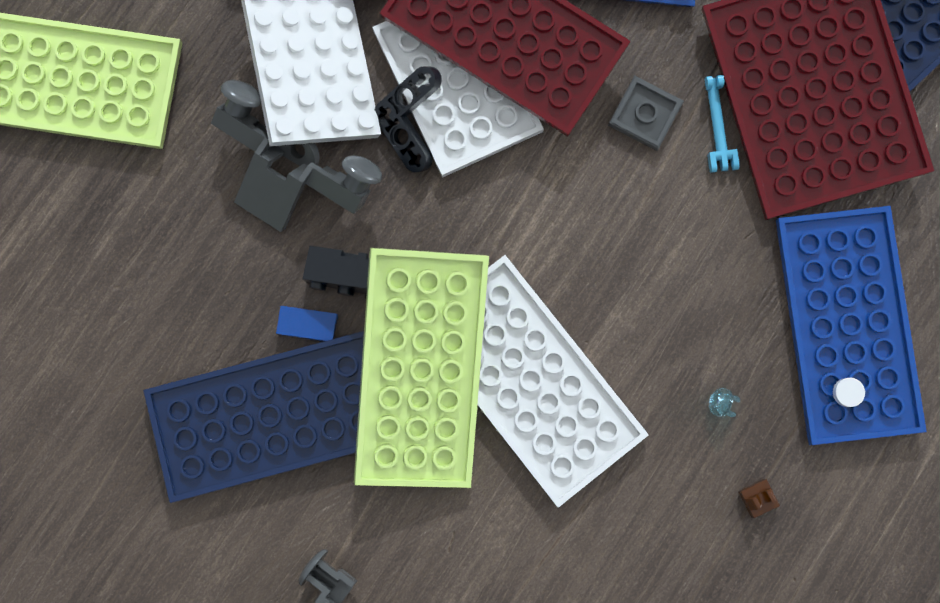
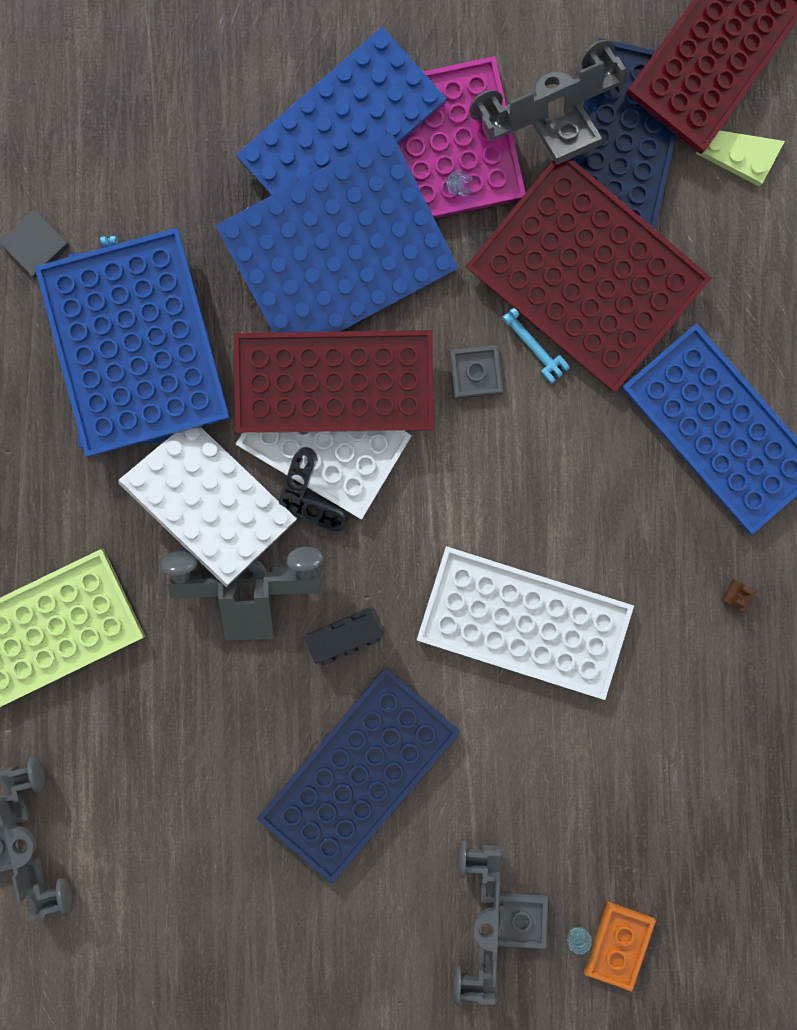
camera: 30 degrees left, 5 degrees up
(306, 323) = (338, 691): blue tile -> none
(420, 368) = (444, 671): yellowish green plate -> none
(721, 402) = (669, 546): clear light blue plate -> none
(848, 392) = (754, 480): white tile -> none

